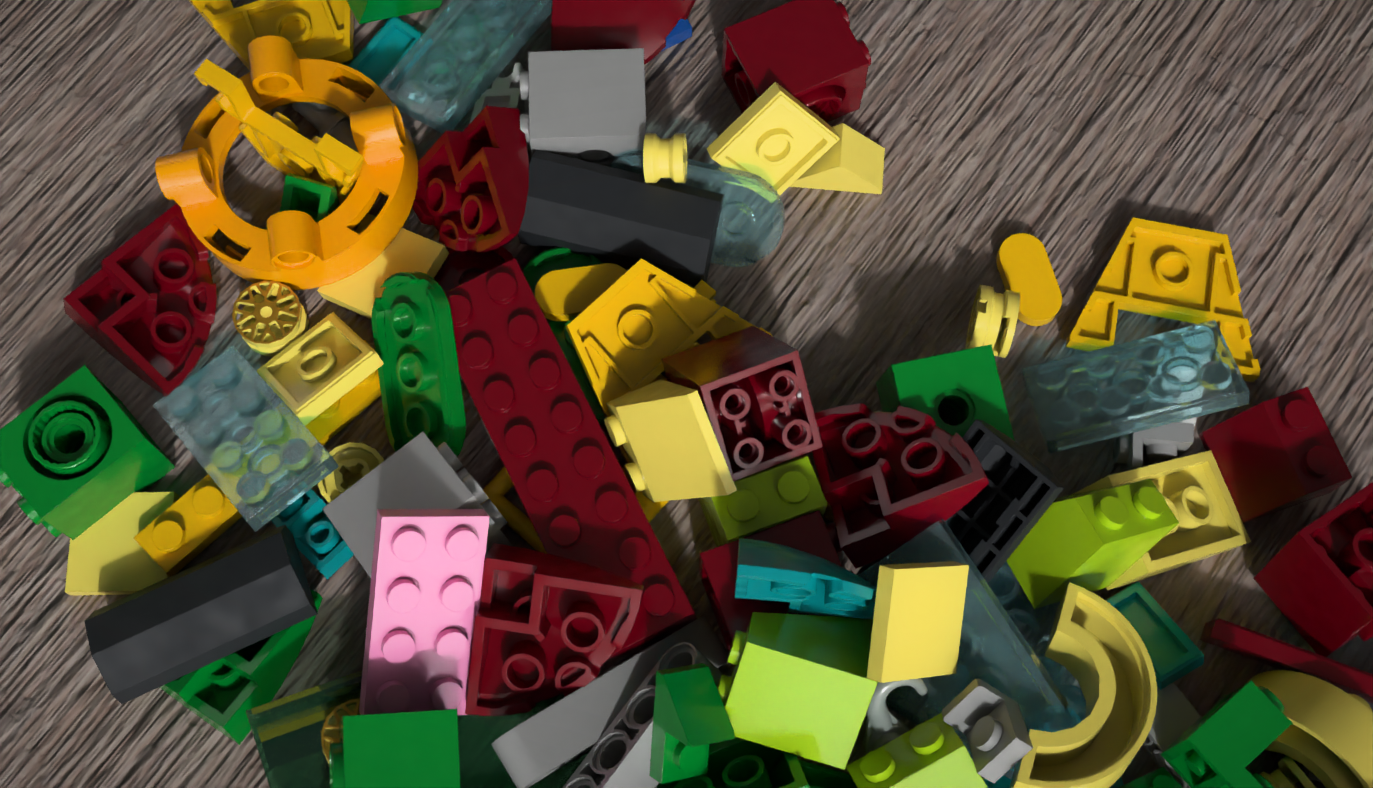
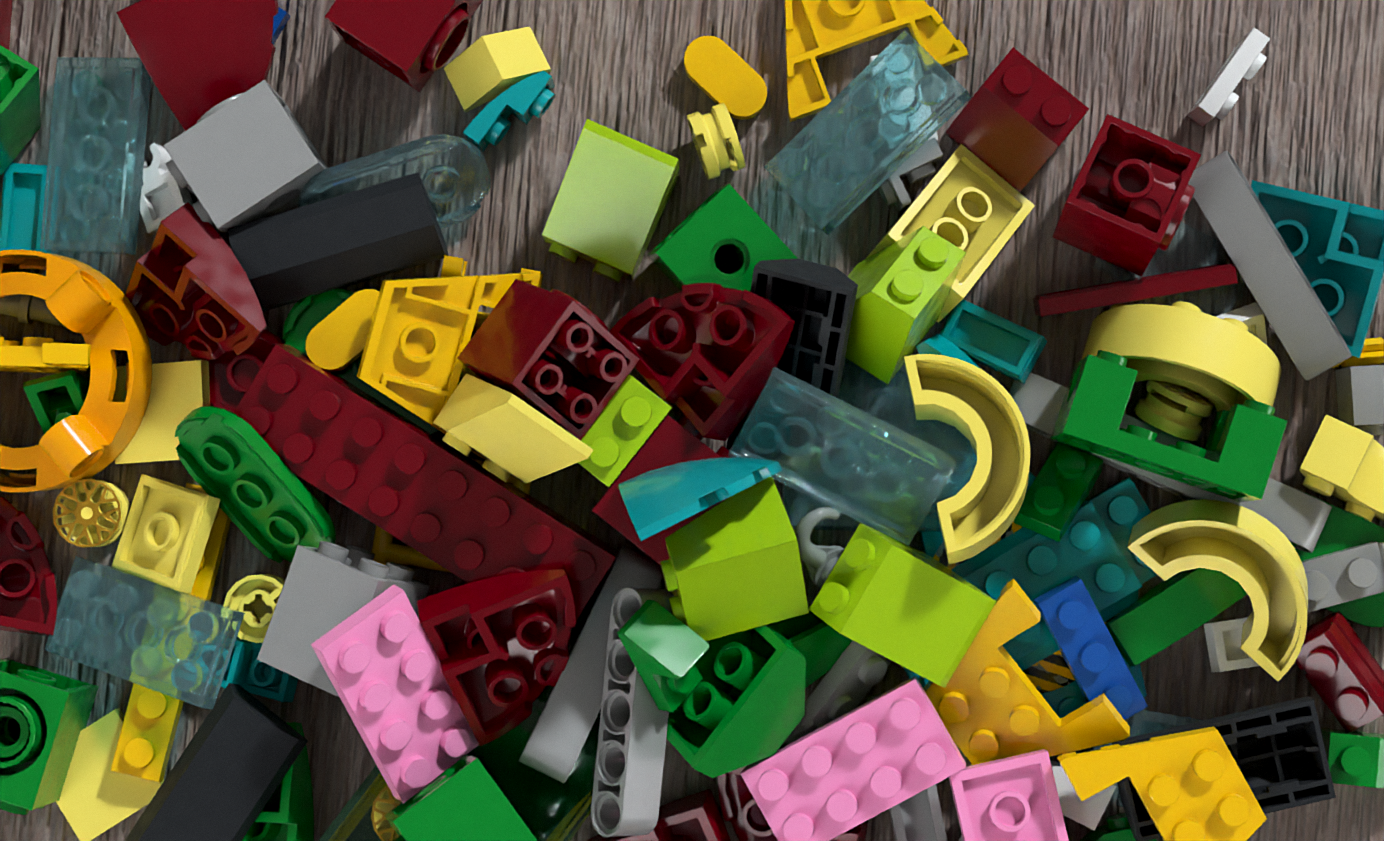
camera: 30 degrees left, 15 degrees up
(665, 158) = (349, 175): light yellow wheel -> none
(774, 139) = (432, 92): light yellow tile -> none
(842, 197) = (523, 100): none -> teal slope
(873, 315) = (610, 201): none -> lime slope
(917, 620) = (800, 470): light yellow tile -> none
(991, 726) = (907, 515): light grey bracket -> none

